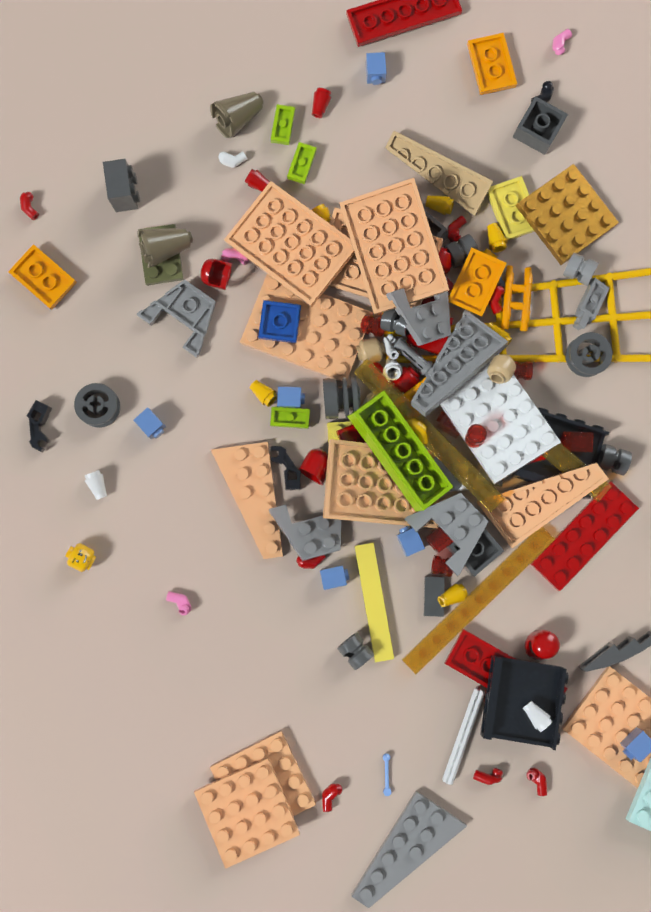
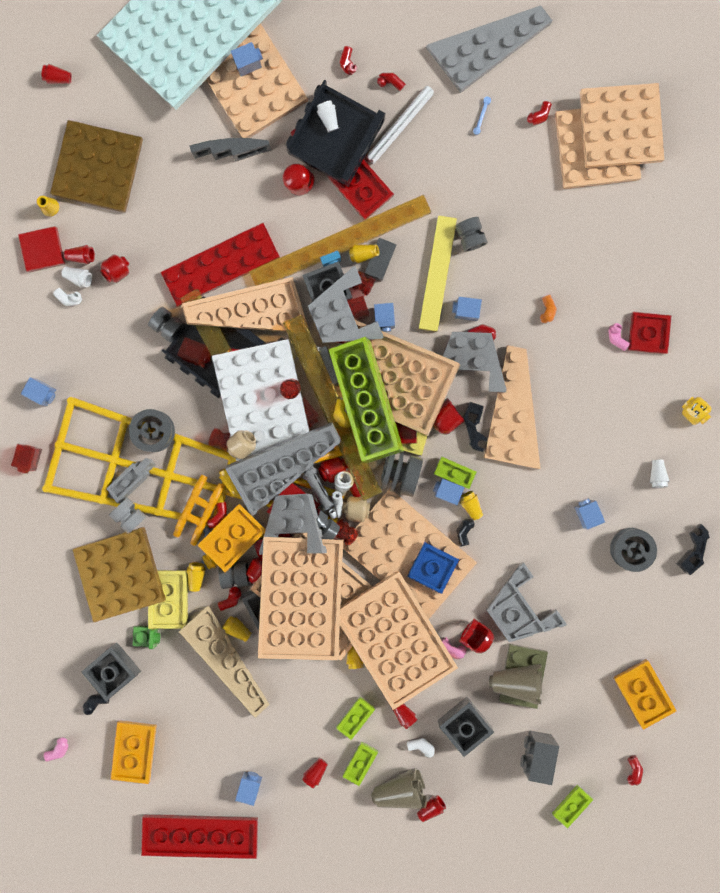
camera: 160 degrees left, 5 degrees up
(75, 154) = (572, 806): none -> lime plate
(150, 617) = (649, 333): none -> red tile
(198, 189) = (465, 726): none -> dark grey brick
(201, 109) = (434, 807): none -> red cone
(253, 604) = (550, 310): none -> orange arm
(263, 366) = (462, 531): none -> black arm
(481, 578) = (330, 258): none -> dark azure plate
(520, 167) = (145, 637): none -> bright green bracket

